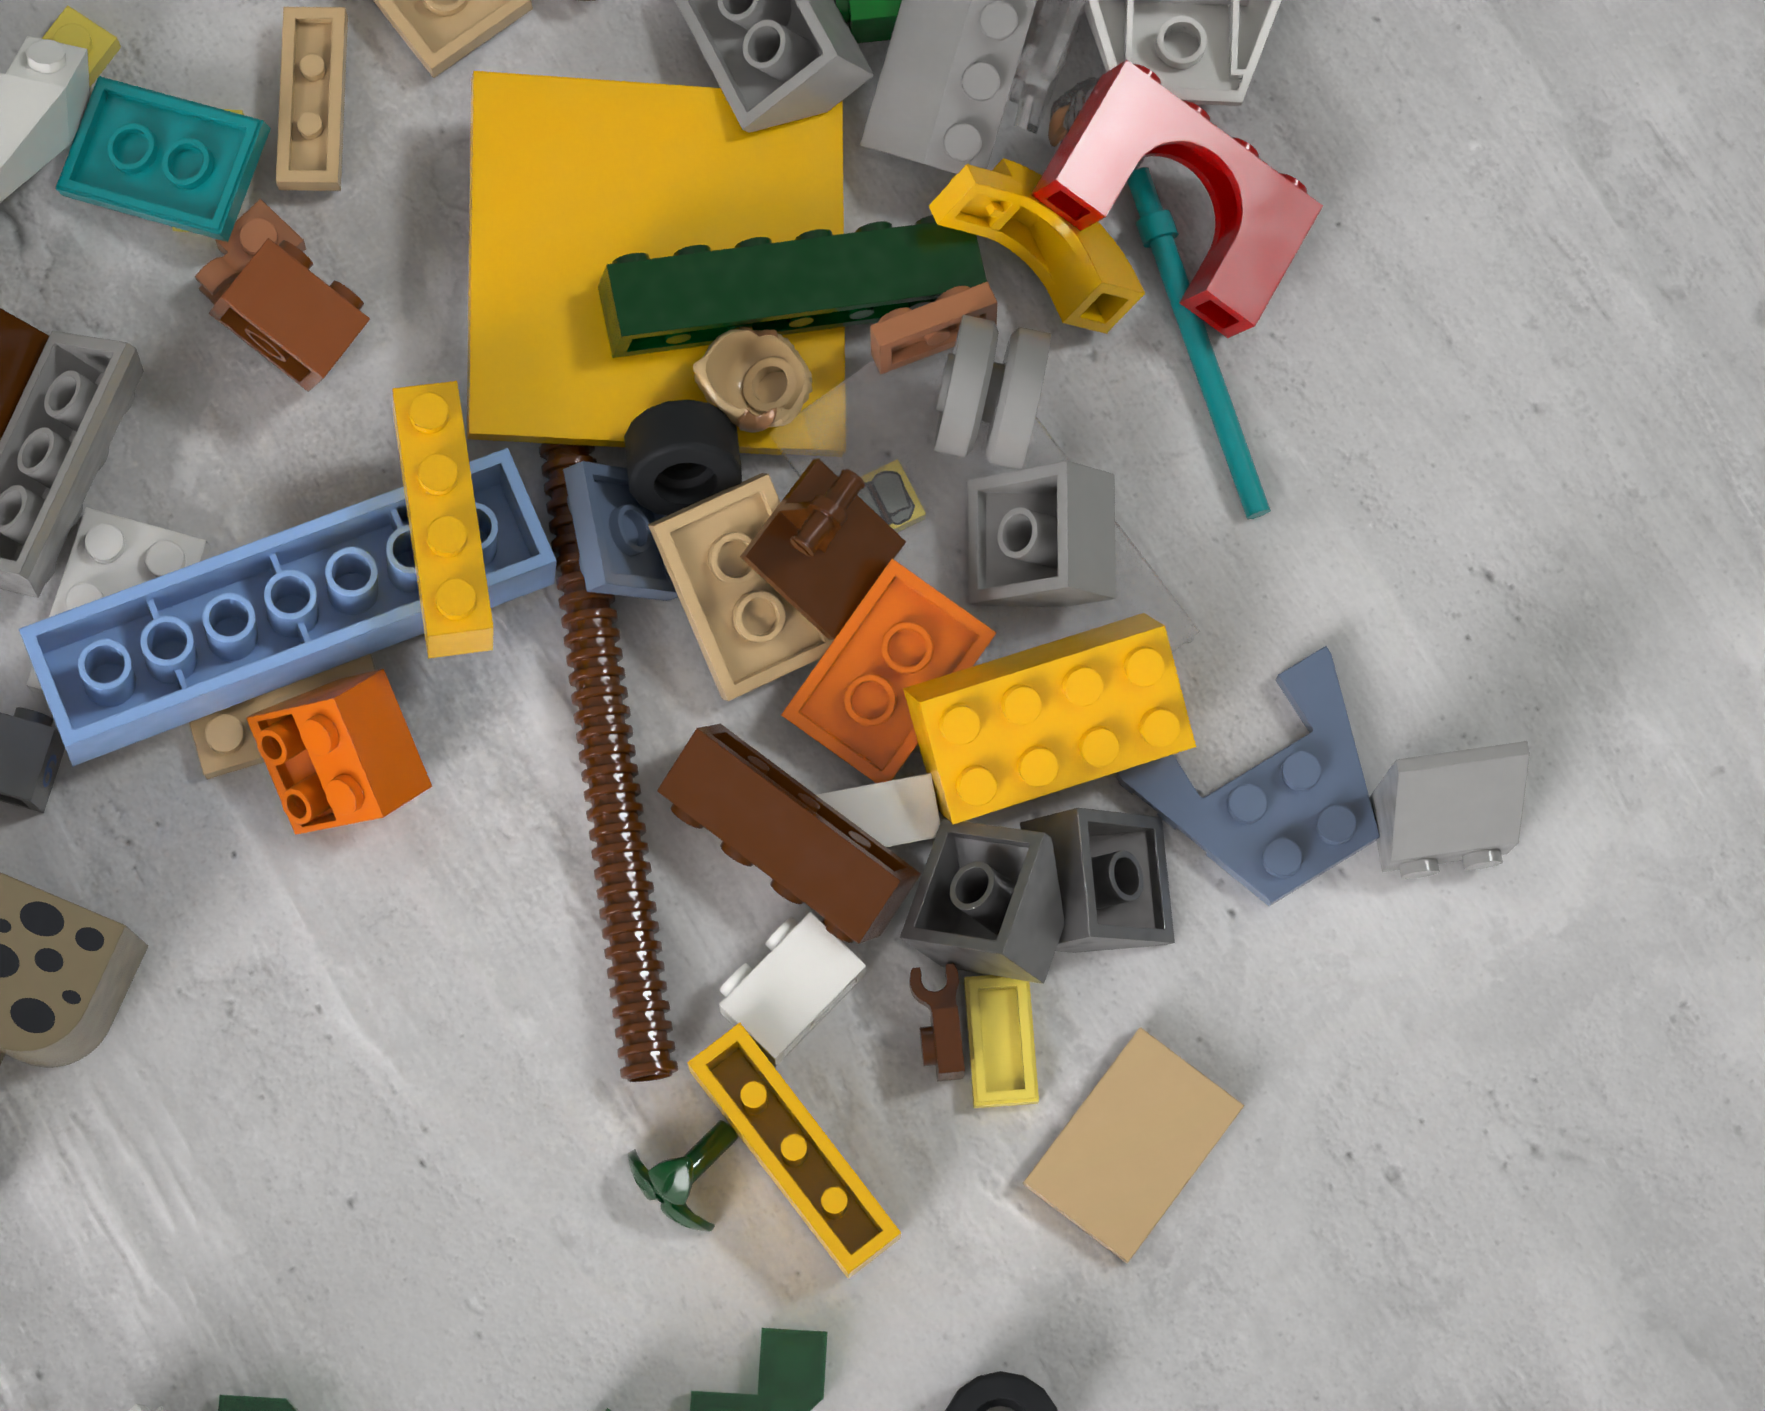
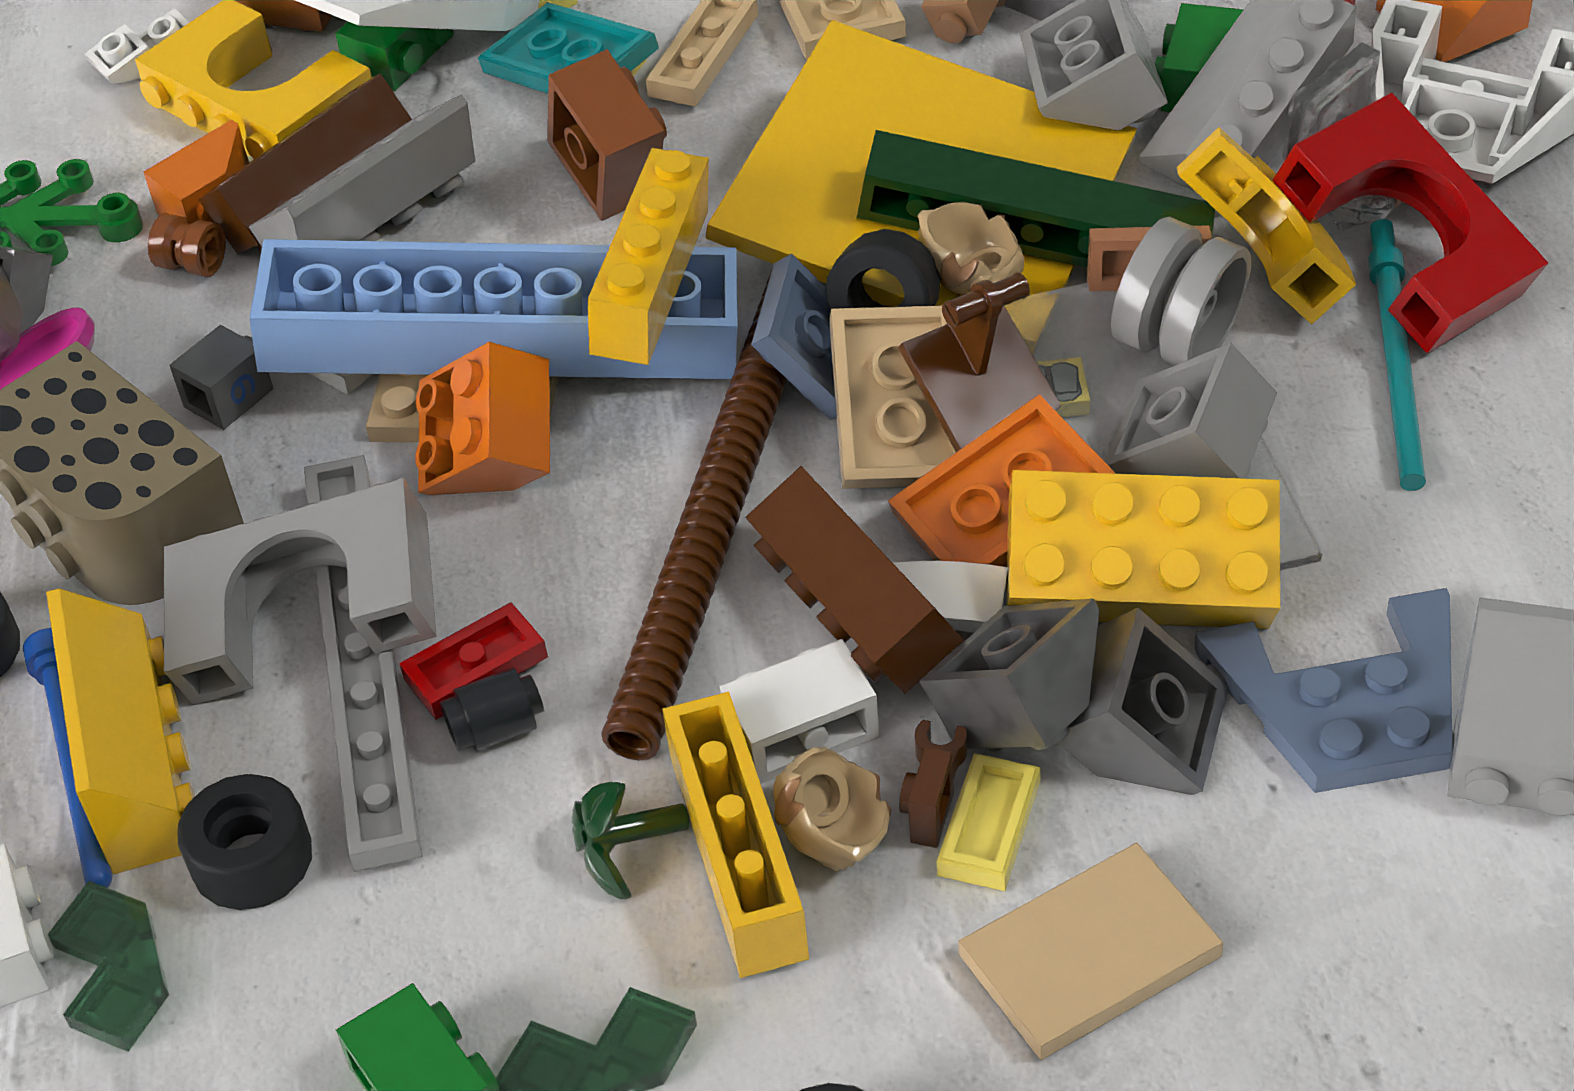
camera: 30 degrees right, 30 degrees down
(43, 1171) = (42, 666): none -> blue piece
(170, 1235) = (120, 729): none -> yellow slope
(171, 1035) = (225, 576): none -> light grey arch
(306, 1294) = (250, 874): none -> black tyre
(342, 1057) = (364, 707): none -> light grey plate
(458, 1029) = (472, 653): none -> red plate
(506, 1084) = (492, 710): none -> black brick
(868, 1093) = (830, 808): none -> tan hair

